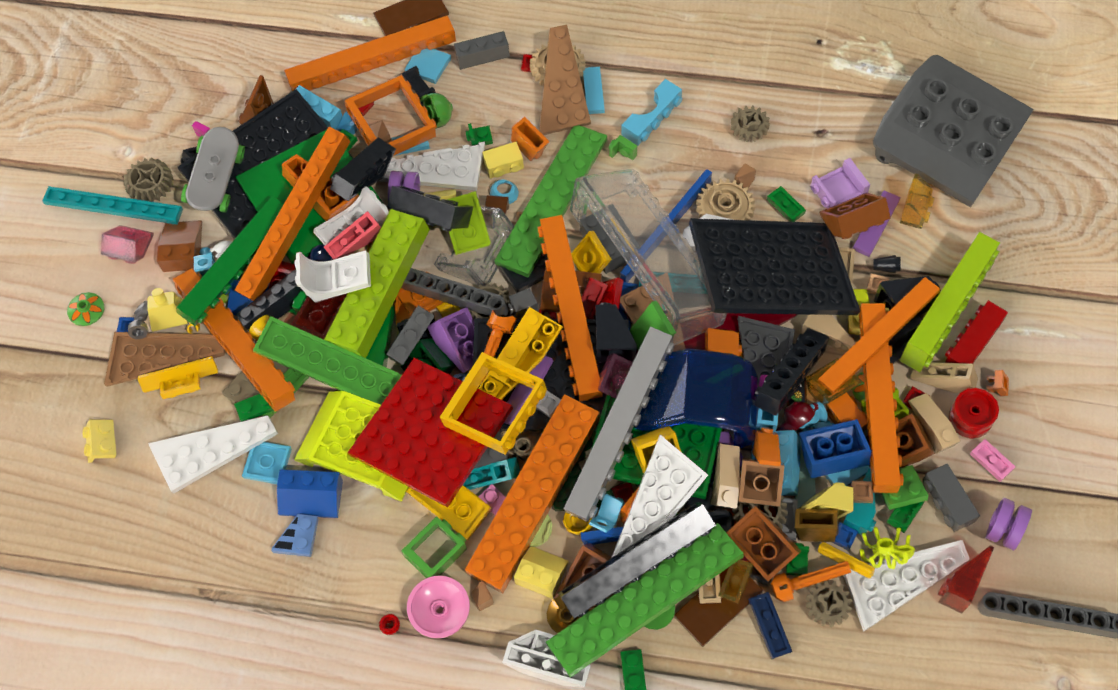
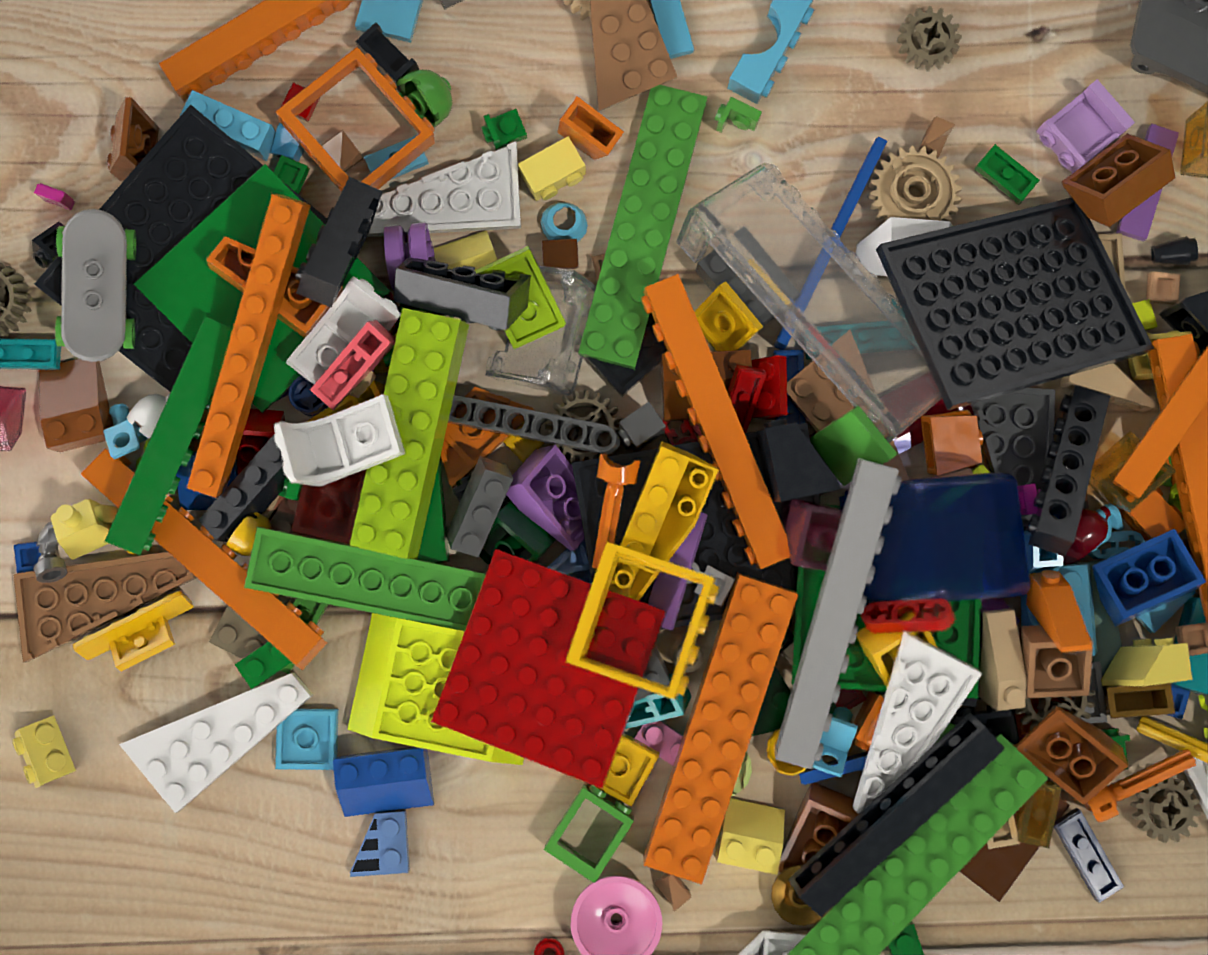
camera: 15 degrees left, 20 degrees up
(665, 428) = (885, 616): none -> red beam

